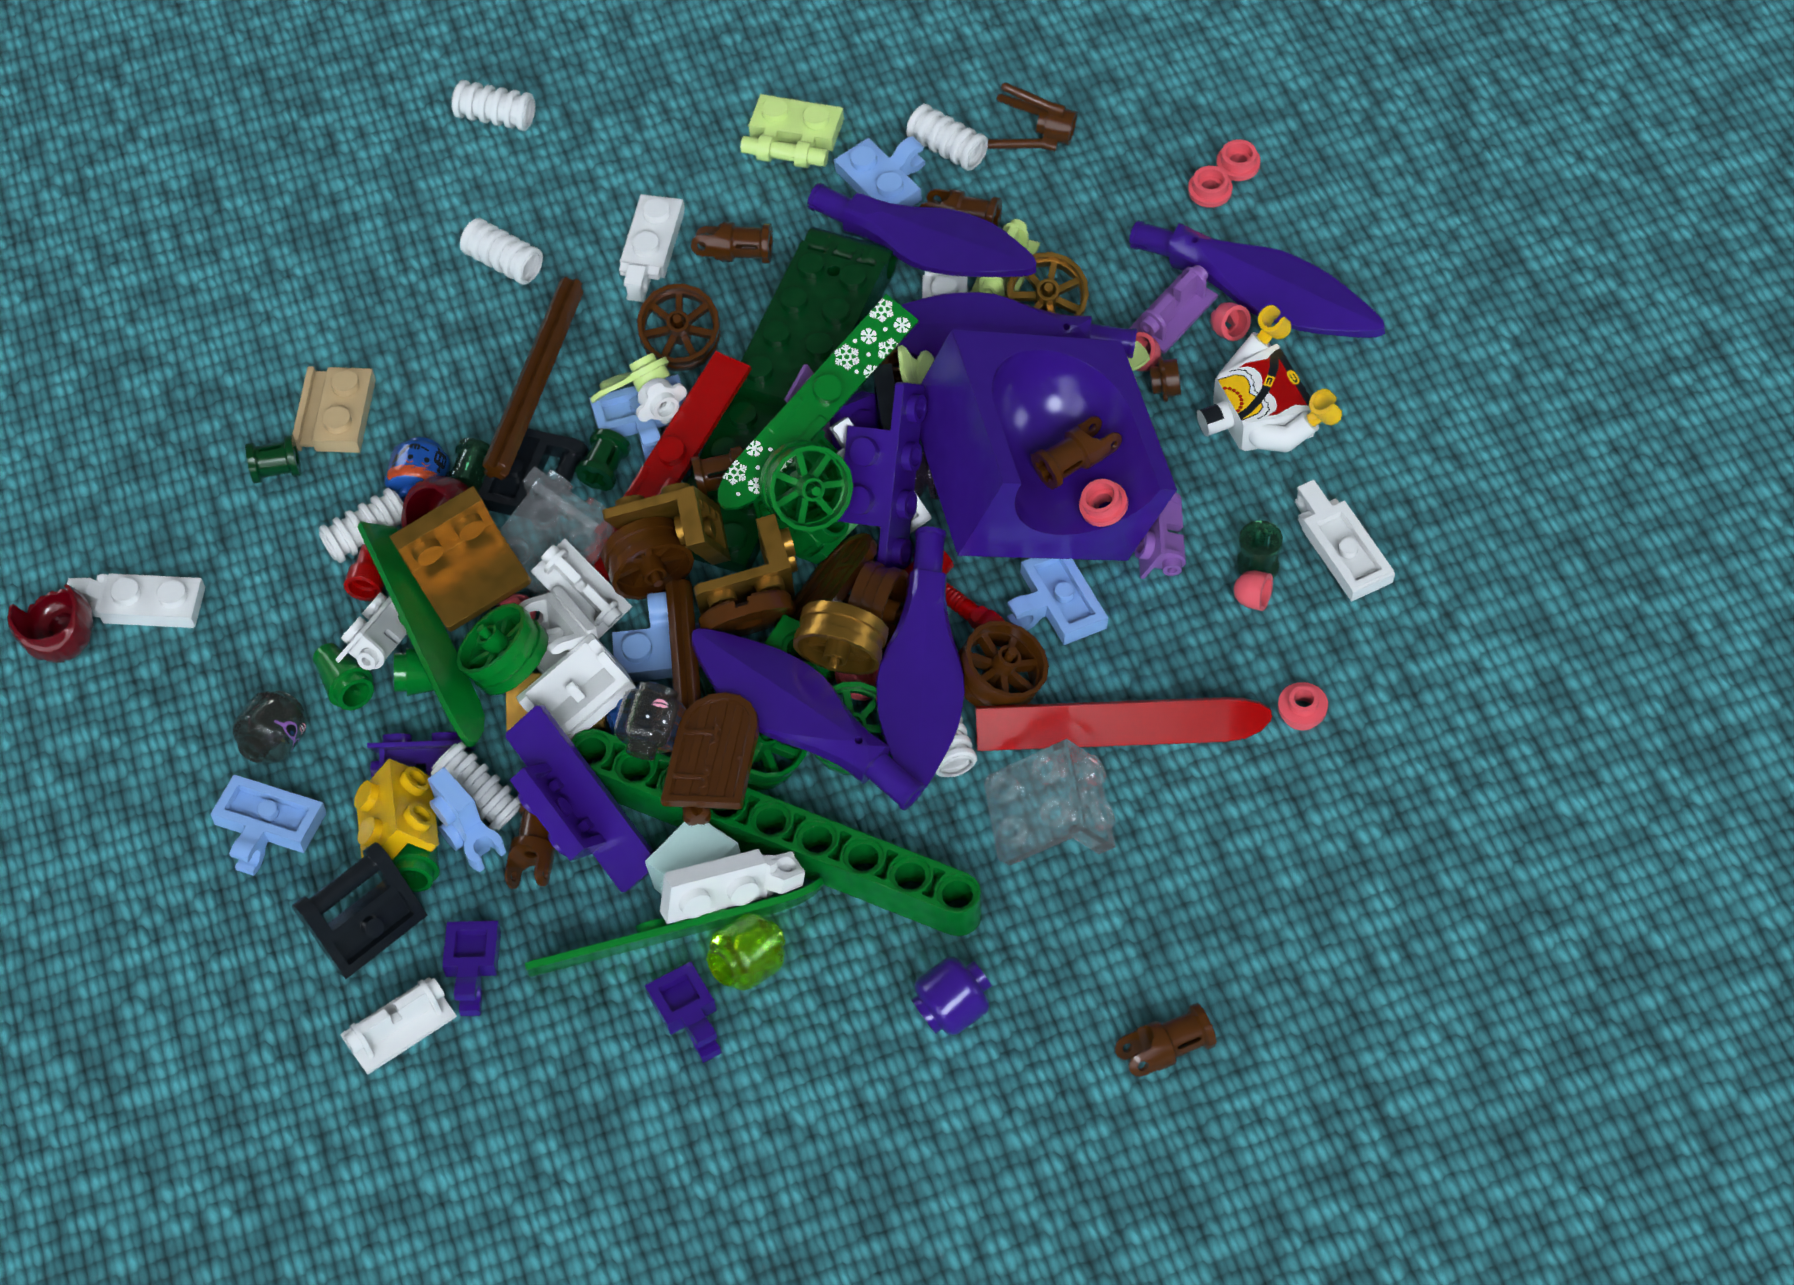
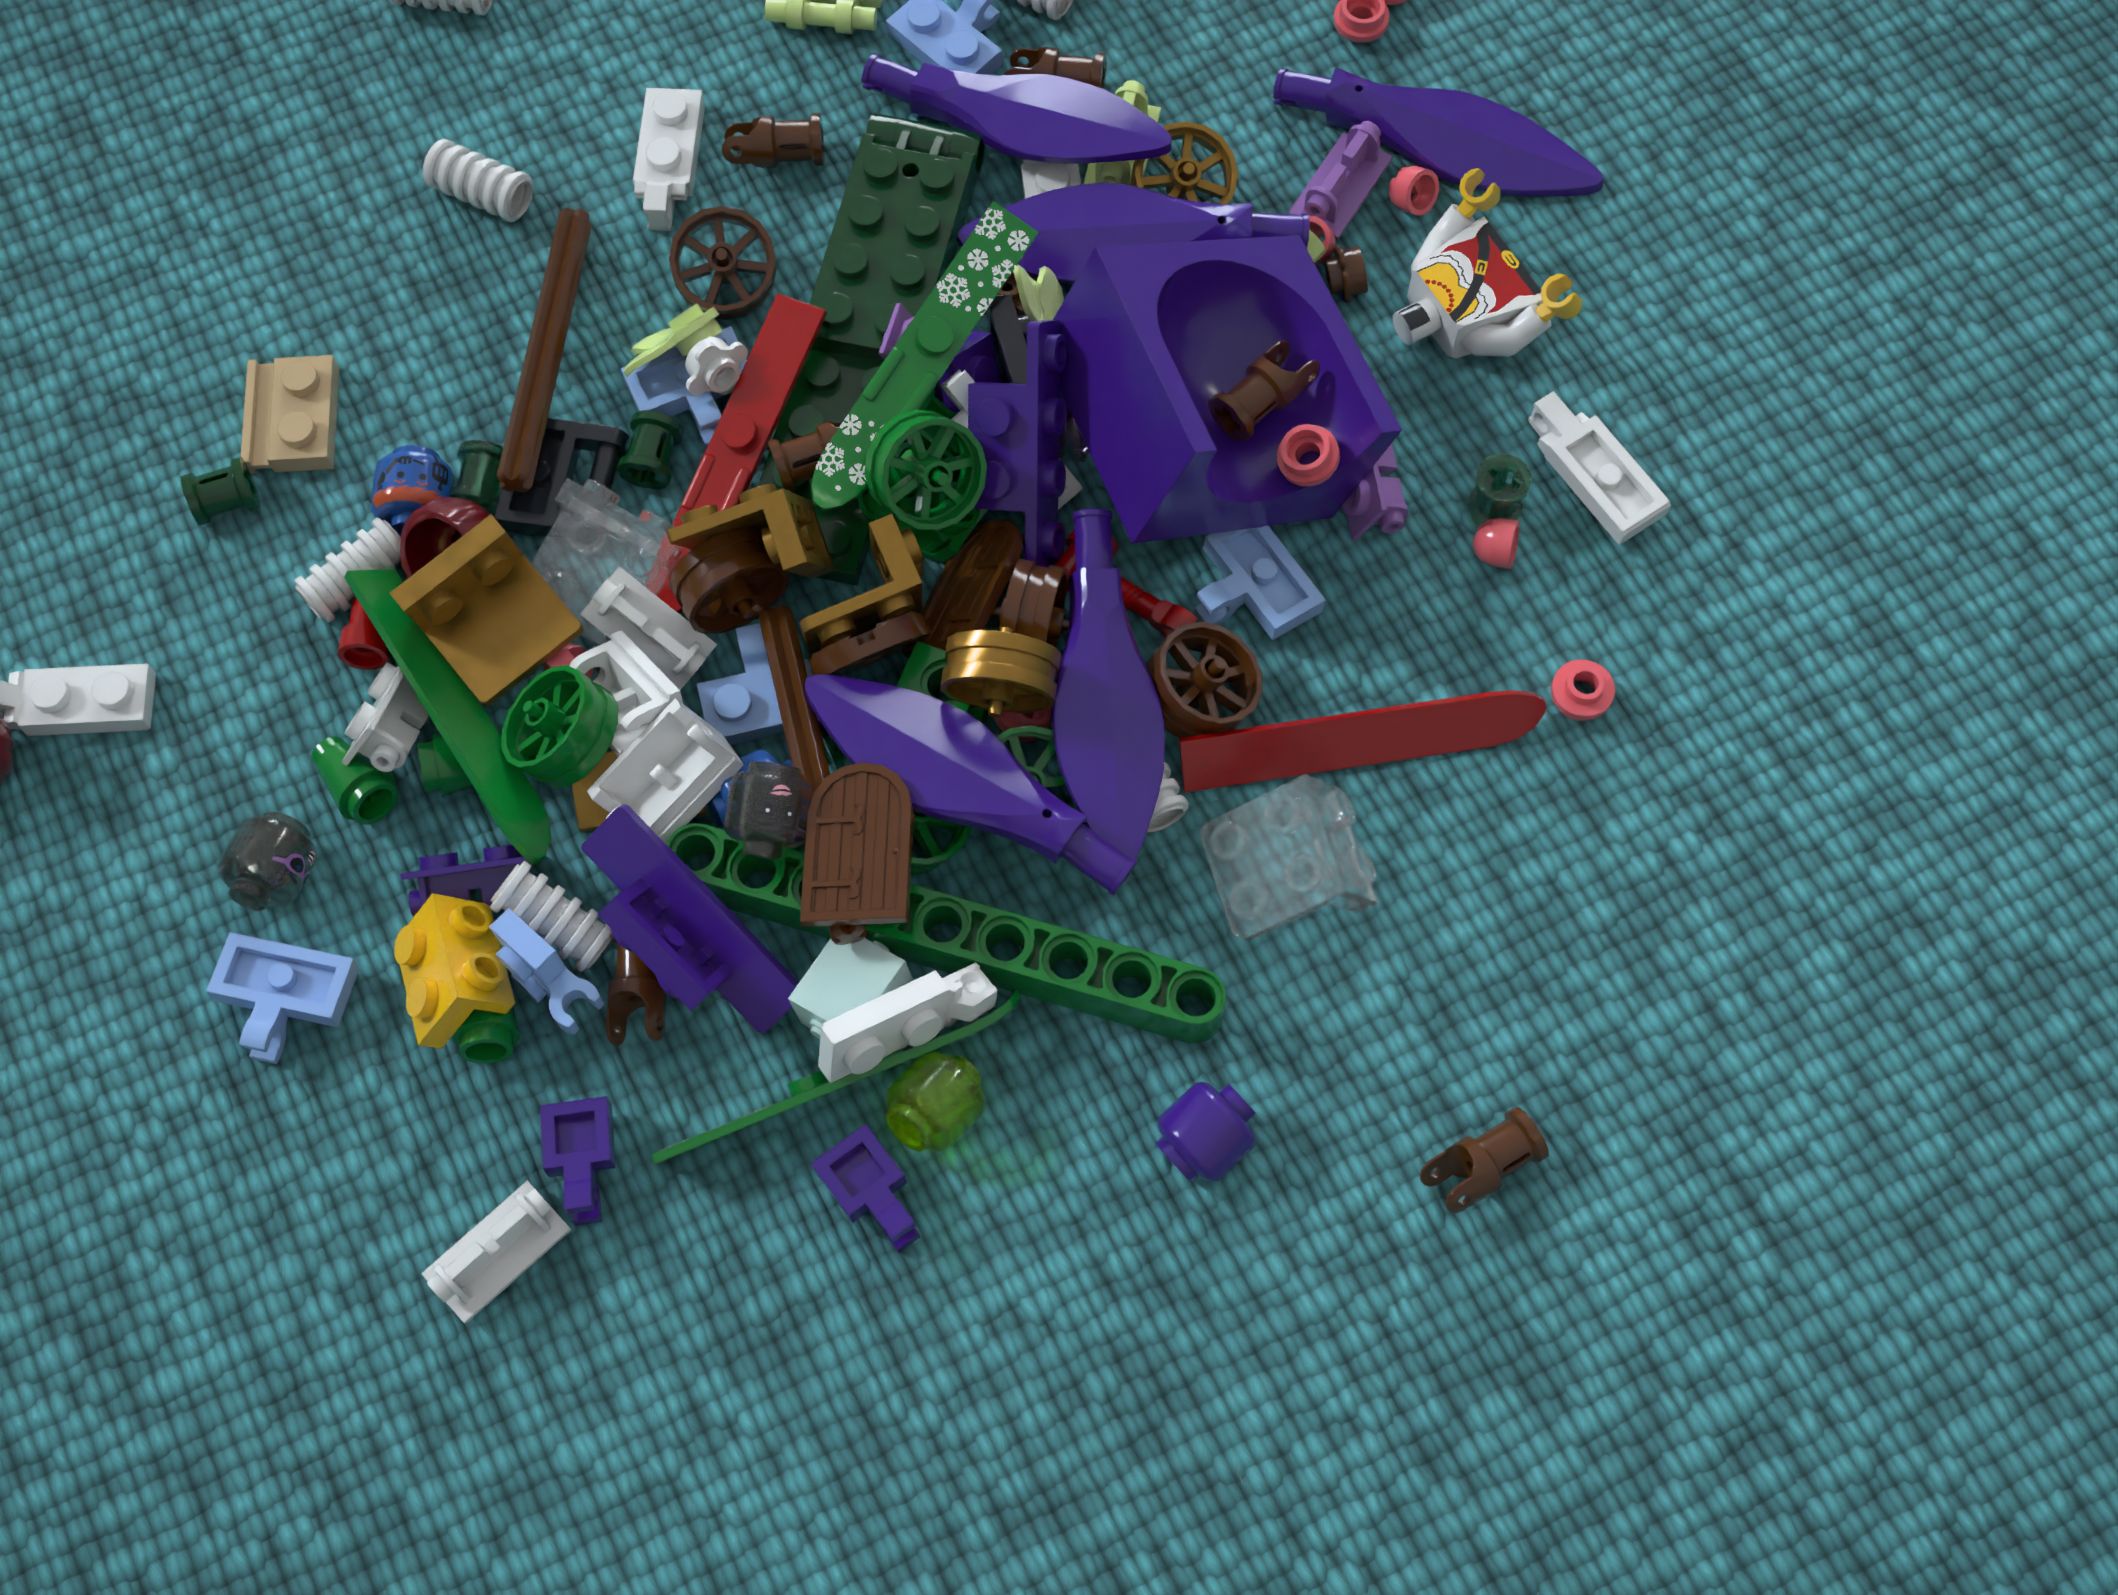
camera: 10 degrees left, 10 degrees up
(368, 923) = (437, 1118): black plate -> none

